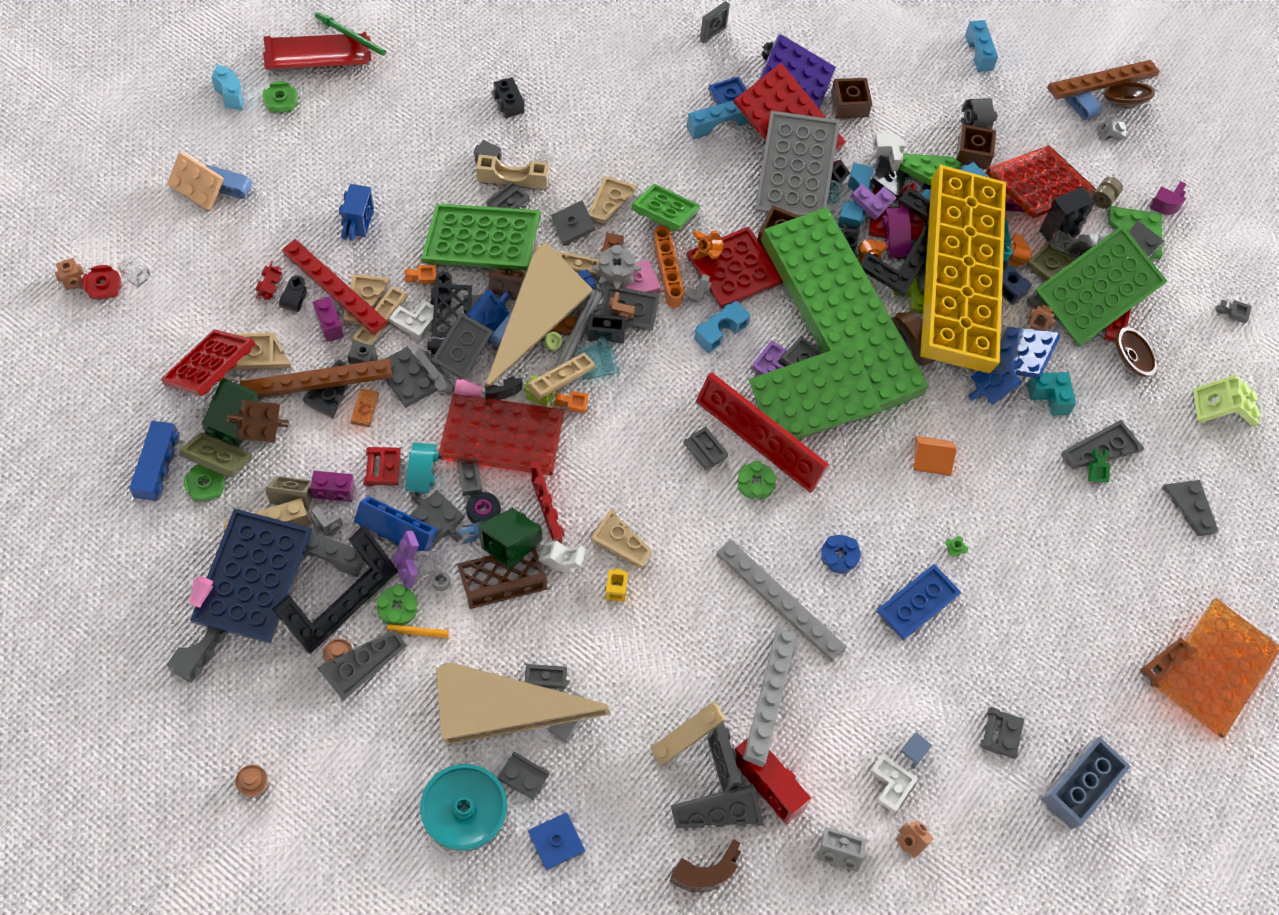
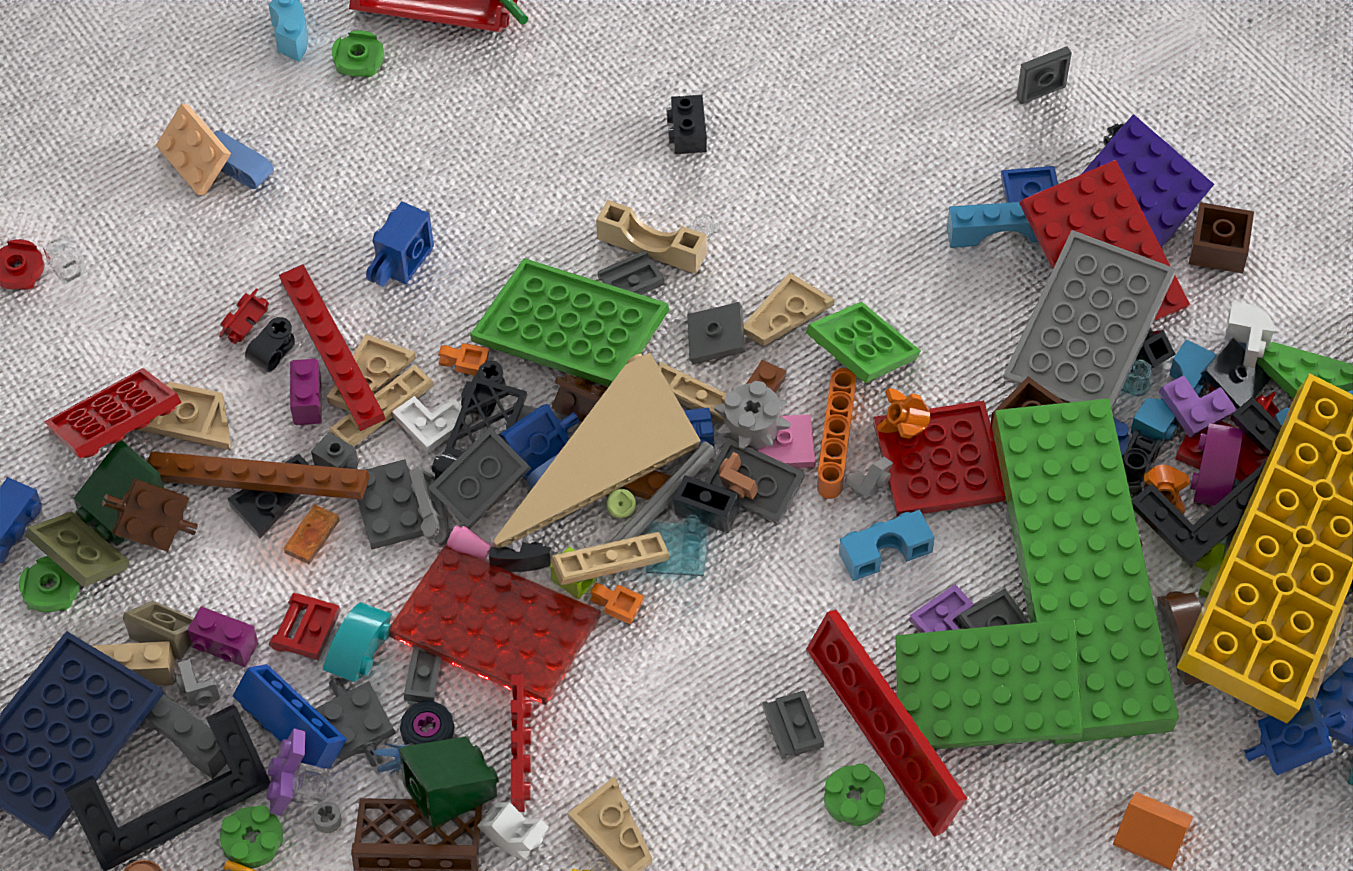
camera: 25 degrees right, 5 degrees down
(487, 148) = (629, 196): dark grey brick -> none

